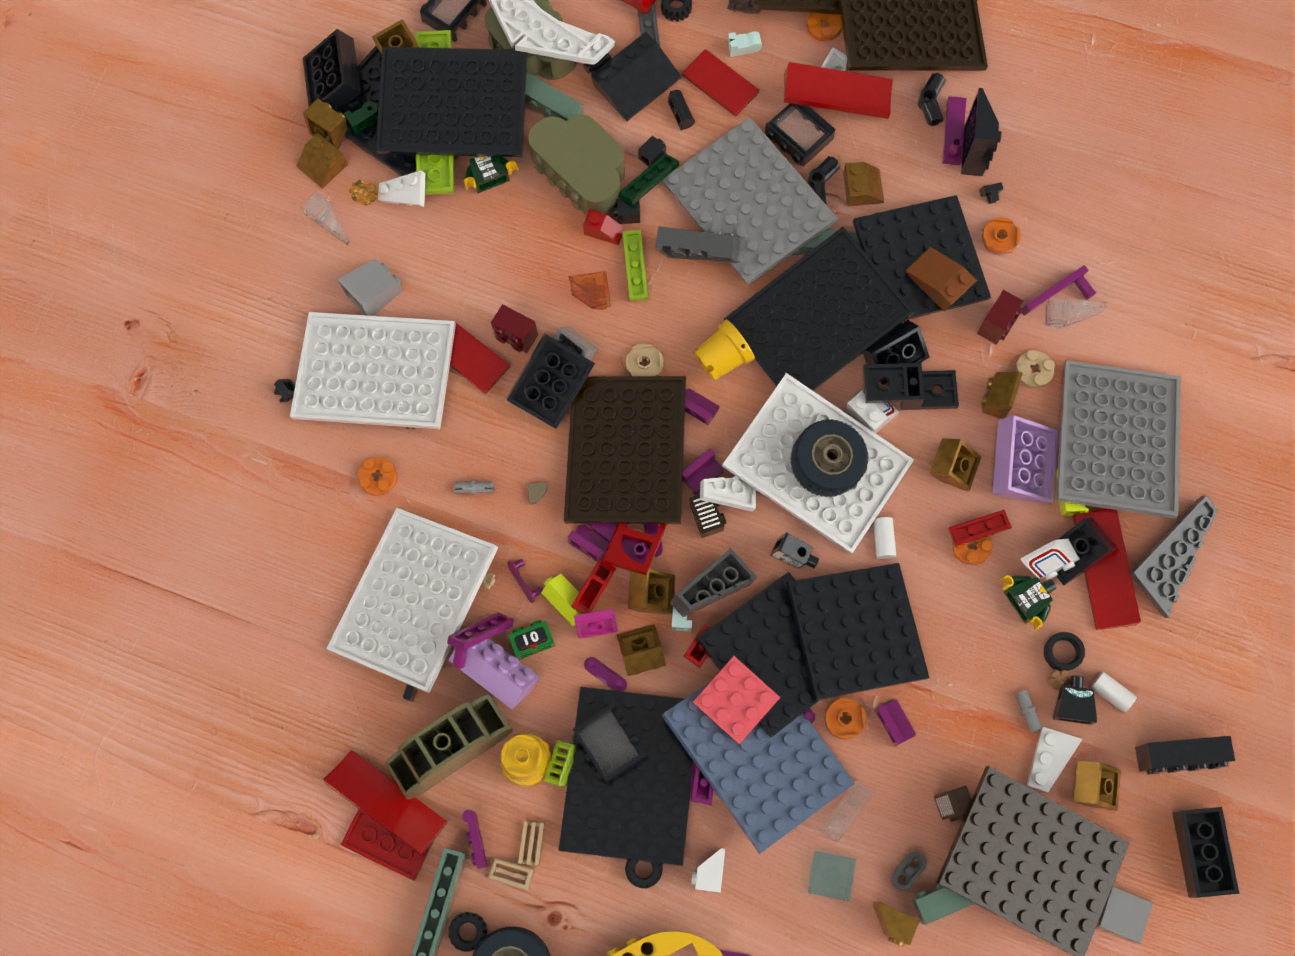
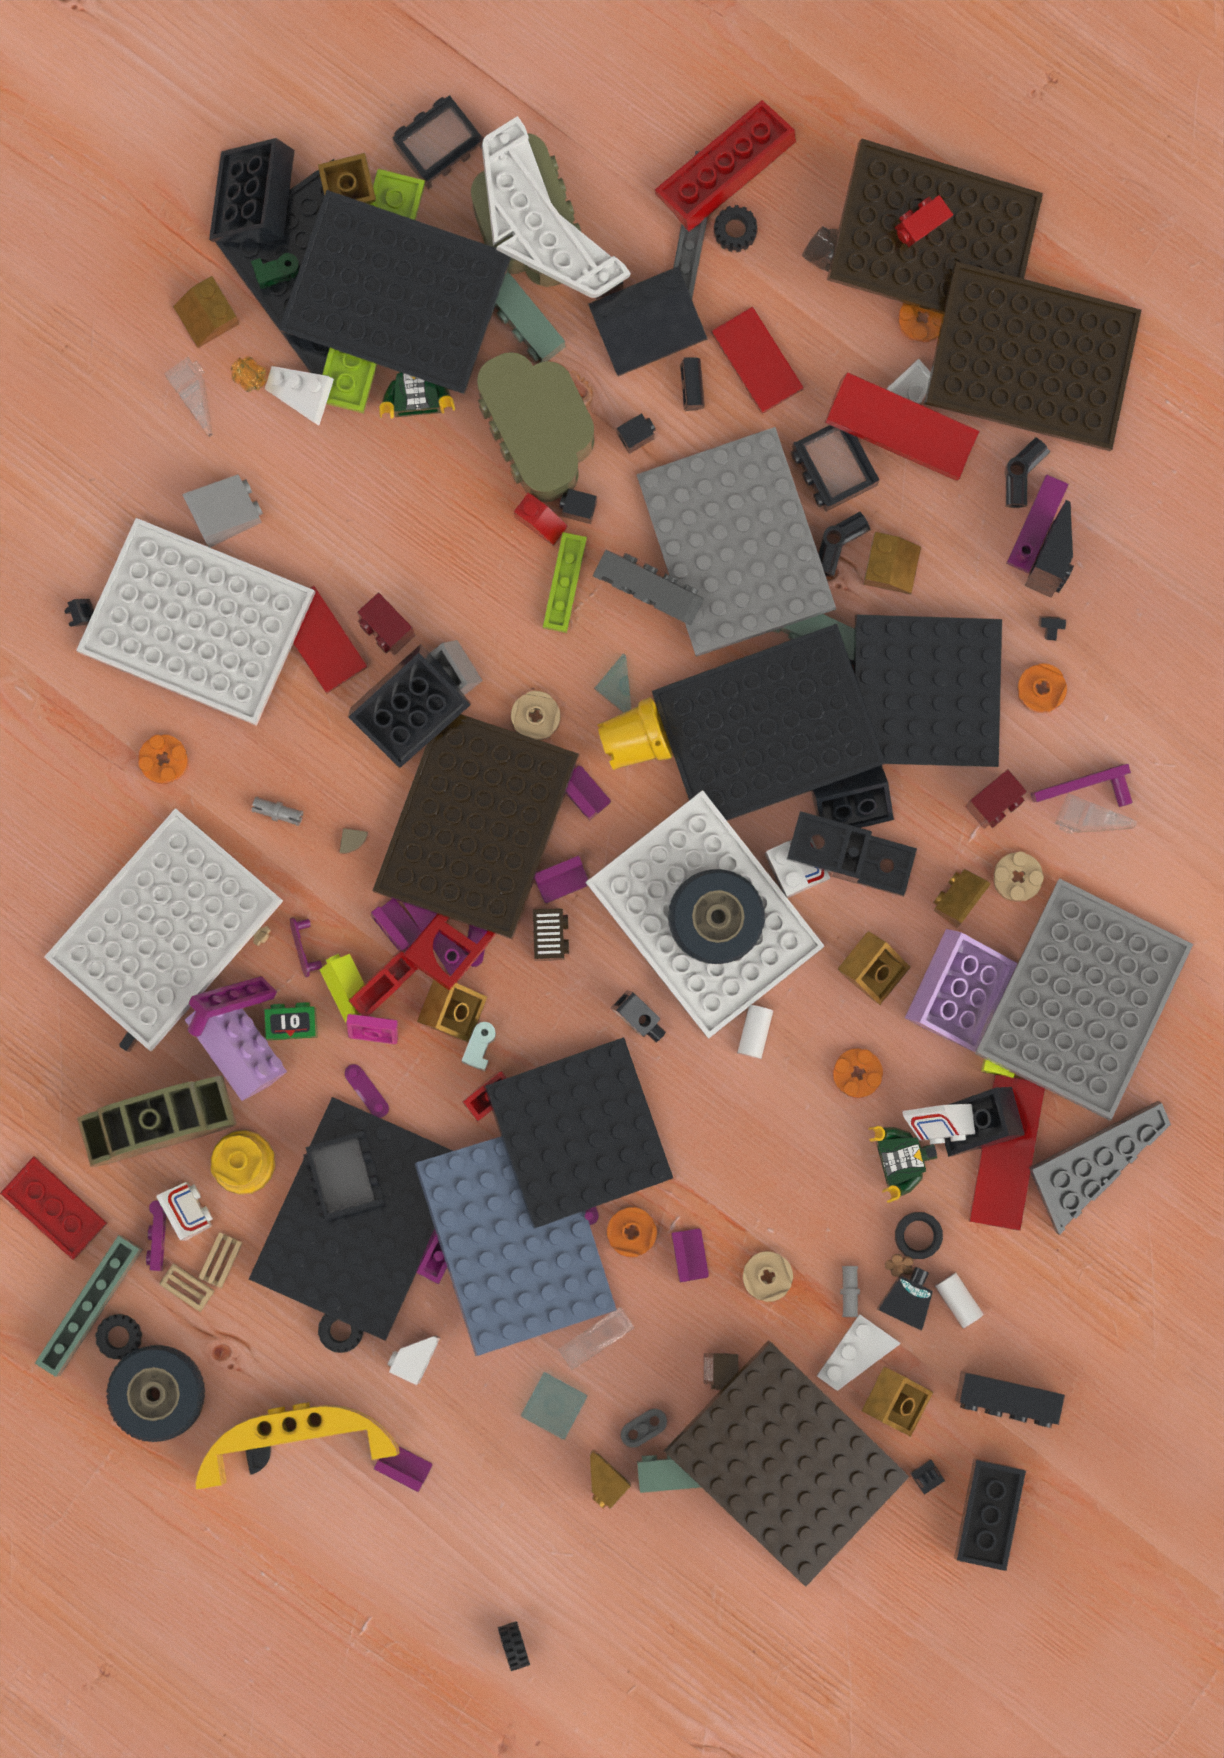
camera: 15 degrees right, 10 degrees up
(327, 122) = (226, 265): pearl gold slope -> none
(385, 803) = (64, 1160): red arch -> none
(492, 811) = (185, 1210): none -> white slope
(552, 768) = (275, 1176): lime slope -> none
(591, 289) = (499, 602): clear orange slope -> none
(641, 650) = (417, 1075): pearl gold slope -> none
(648, 179) = (618, 471): dark green tile -> none
(695, 324) = (615, 685): none -> clear light blue tile
(718, 581) = (531, 1024): dark grey wedge -> none
(728, 492) = (583, 917): white wing -> none
(736, 699) = (506, 1173): coral plate -> none
(744, 43) = (806, 315): light aqua leg -> none
(857, 631) = (680, 1134): black plate -> none
(940, 277) = (937, 726): dark orange slope -> none
(963, 708) = (761, 1289): none -> tan plate
(979, 528) = (872, 1056): red tile -> none
(1125, 915) = (874, 1553): light grey tile -> none
(1142, 838) = (927, 1476): none -> black tile

